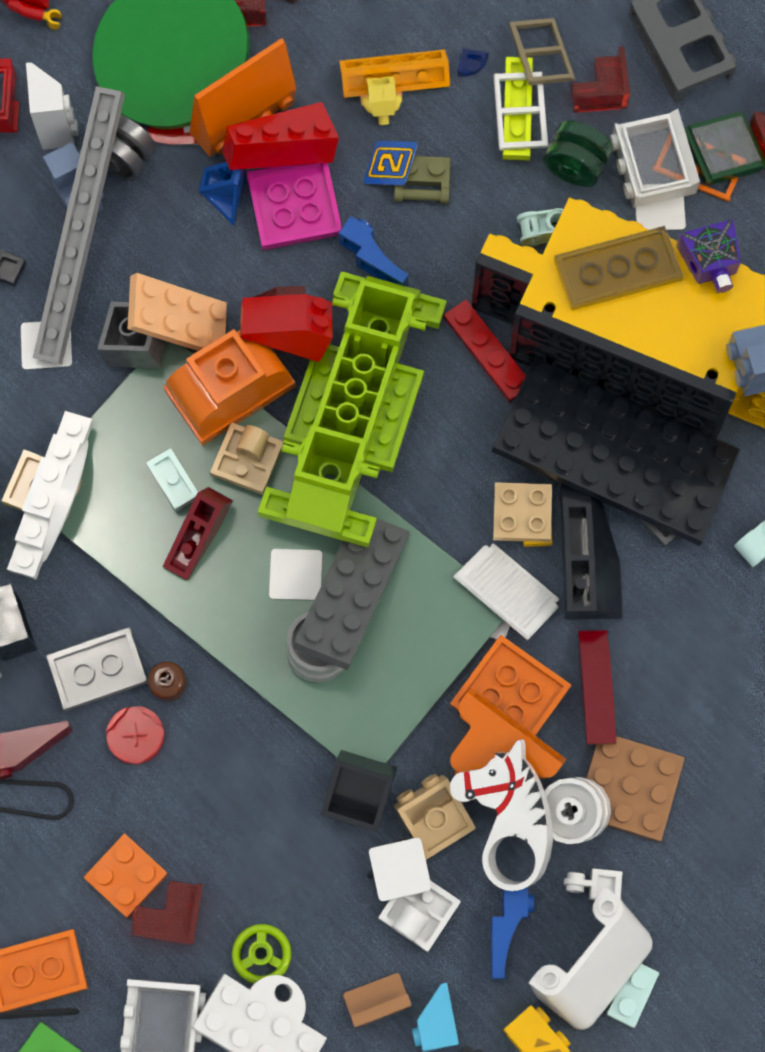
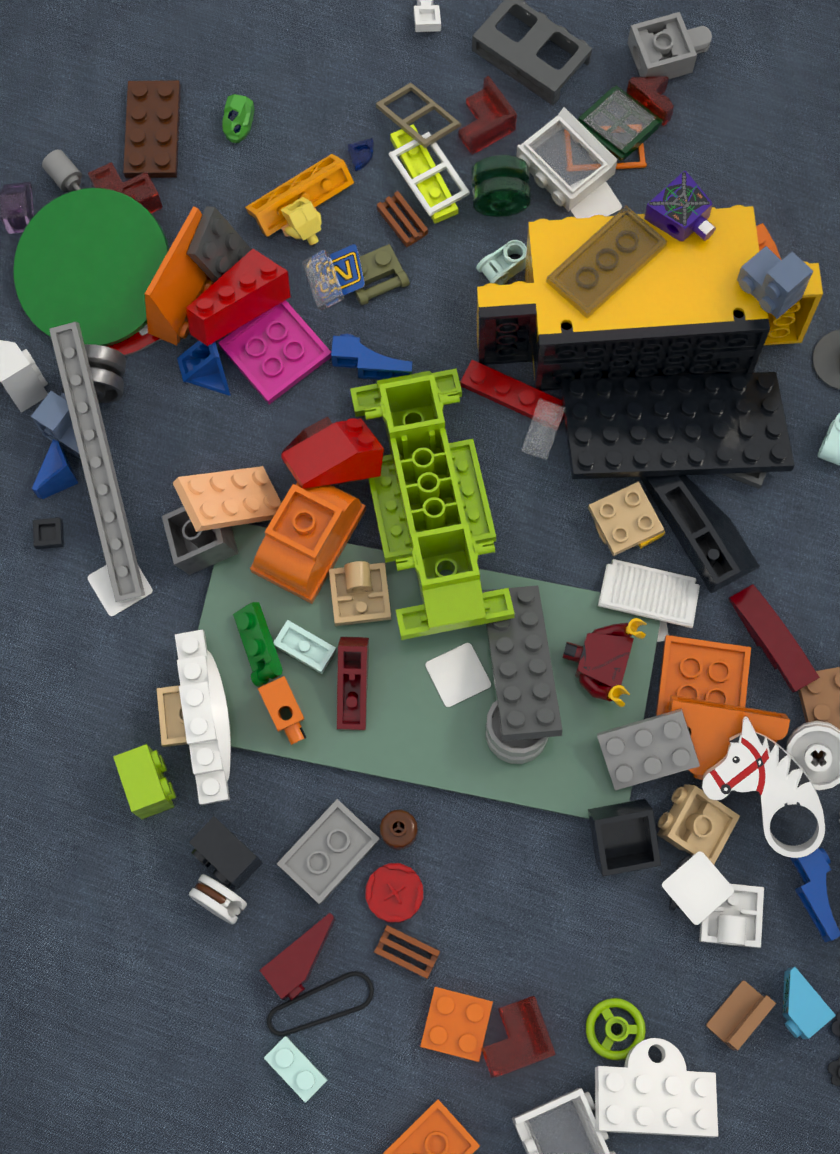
camera: 25 degrees left, 0 degrees up
(42, 217) = (54, 473): none -> blue slope
(103, 771) = (385, 941): none -> dark orange tile
(123, 510) = (279, 696): none -> orange torso
(133, 456) = (258, 644): none -> green plate
(288, 82) = (216, 245): none -> dark grey plate
(371, 161) = (323, 280): none -> clear plate
(423, 725) = (648, 749): none -> light grey plate
(431, 626) = (605, 659): none -> dark red torso
(472, 120) = (390, 202): none -> dark orange tile
(493, 394) = (543, 429): none -> clear plate

